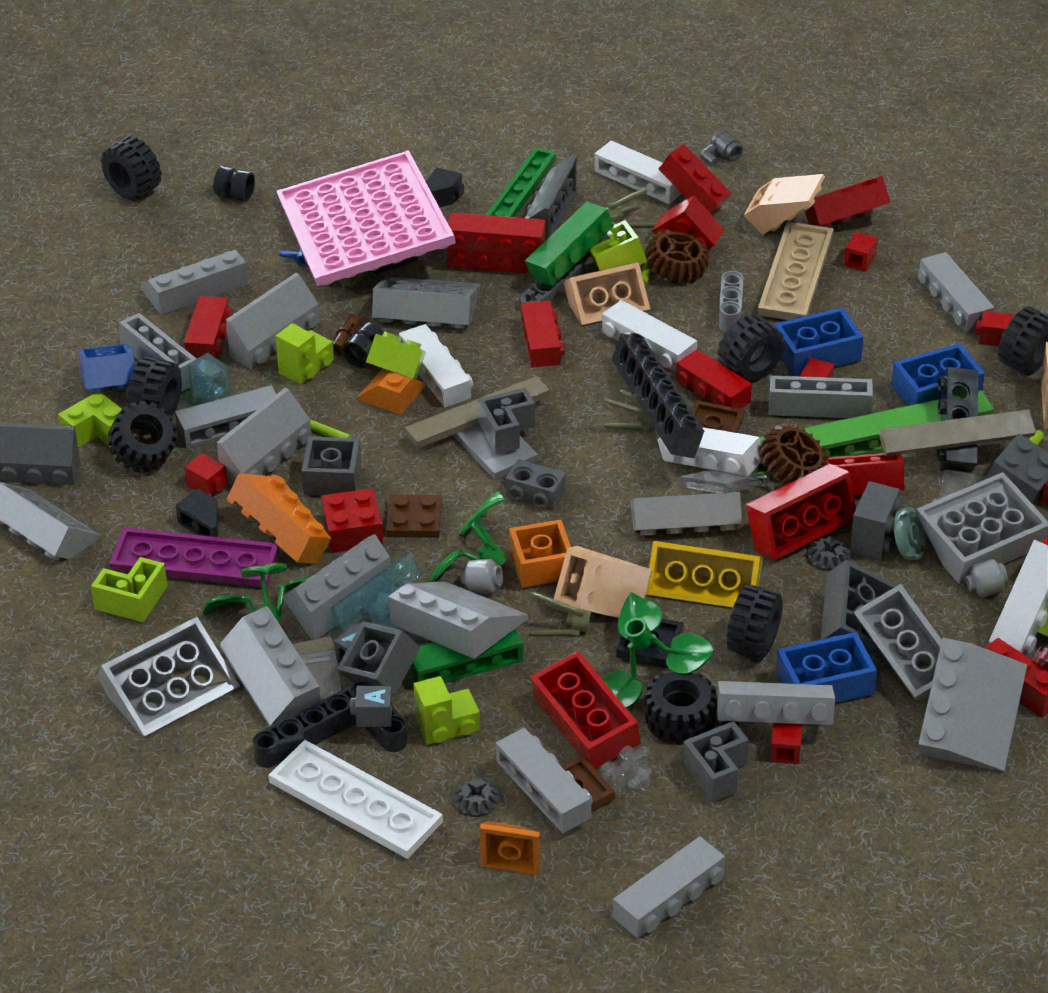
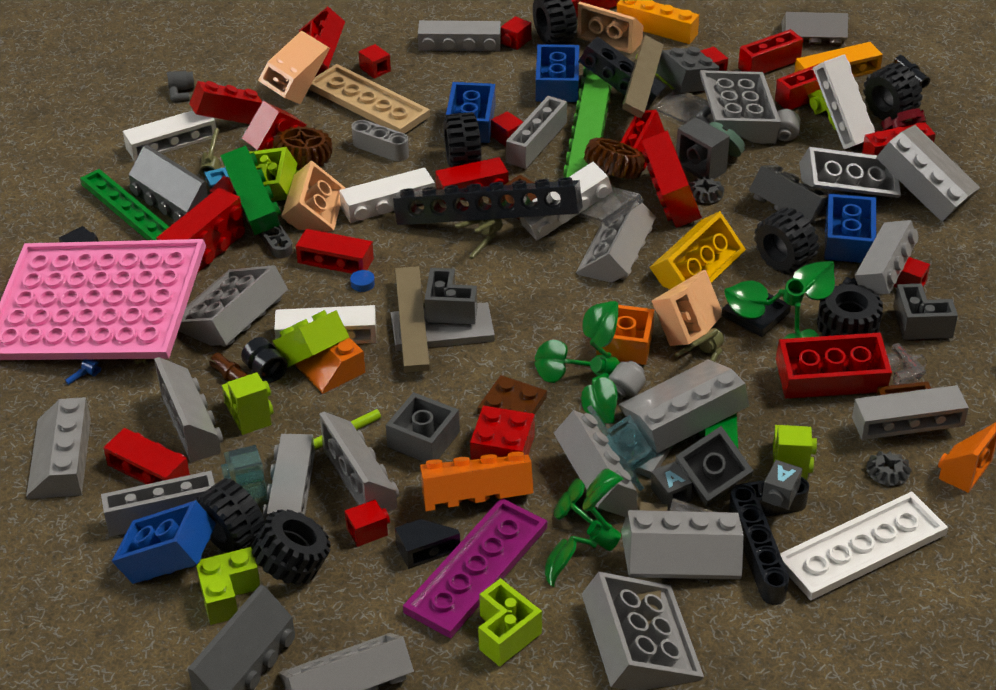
camera: 65 degrees left, 0 degrees up
(519, 367) = (362, 280): none -> blue tile
(535, 484) = (529, 314): dark grey brick -> none

